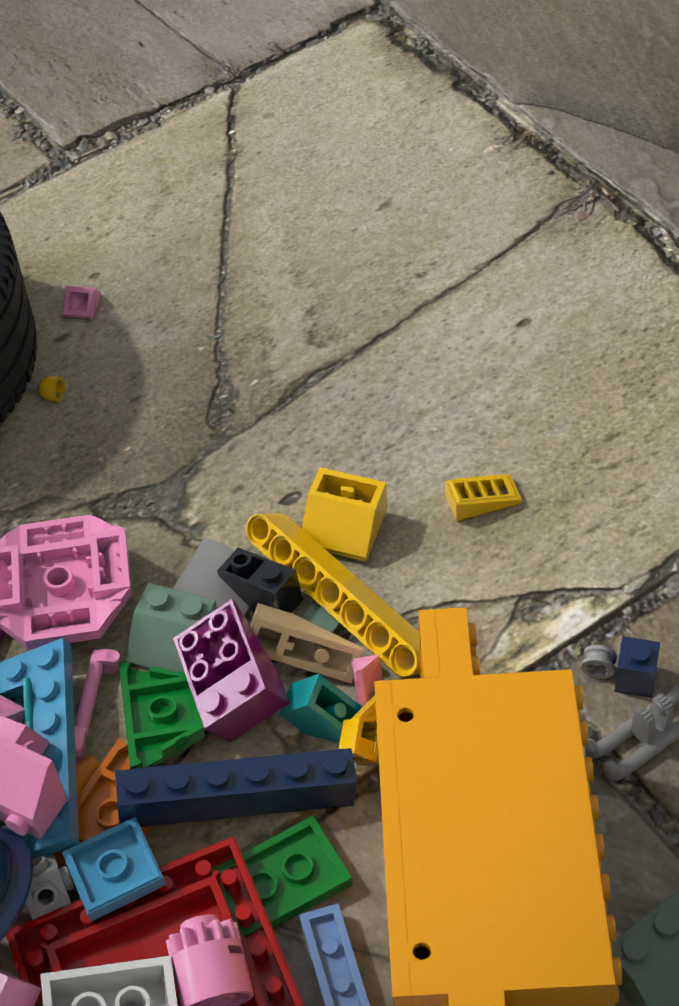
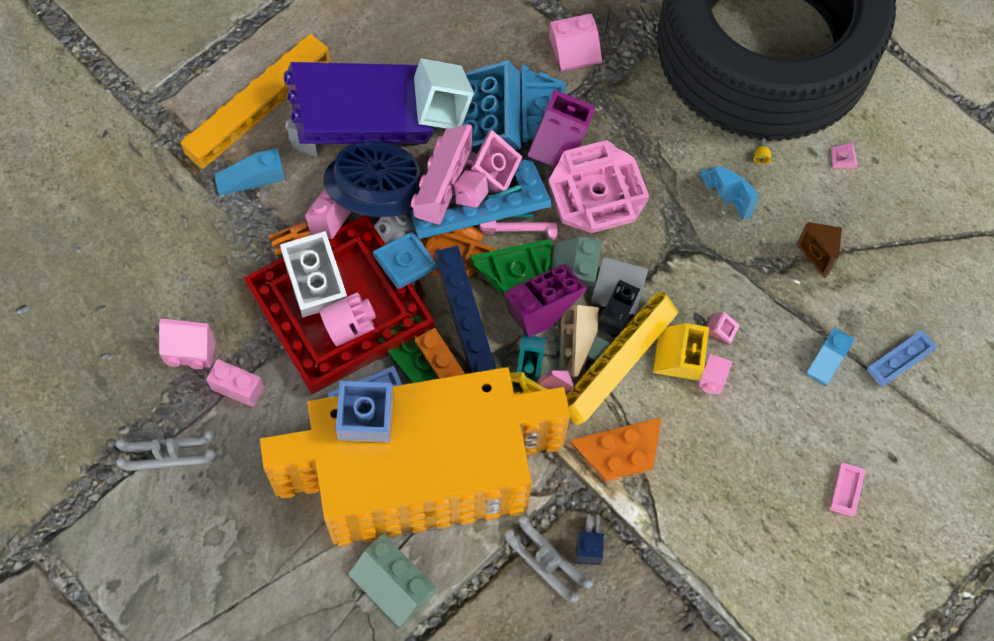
camera: 75 degrees right, 15 degrees up
(102, 415) = (731, 189): none -> dark azure slope
(221, 333) = (821, 246): none -> reddish brown slope
(303, 470) = (722, 327): none -> bright pink slope
(309, 834) = (438, 355): none -> orange plate
(376, 354) = (830, 356): none -> slope
(392, 287) = (901, 358): none -> medium blue plate
(396, 479) = (715, 374): none -> bright pink brick
(436, 885) = (364, 411): none -> medium blue brick
(474, 506) = (727, 437): yellow slope -> none
(491, 604) = (621, 450): none -> orange wing
(566, 370) = (847, 489): none -> bright pink tile

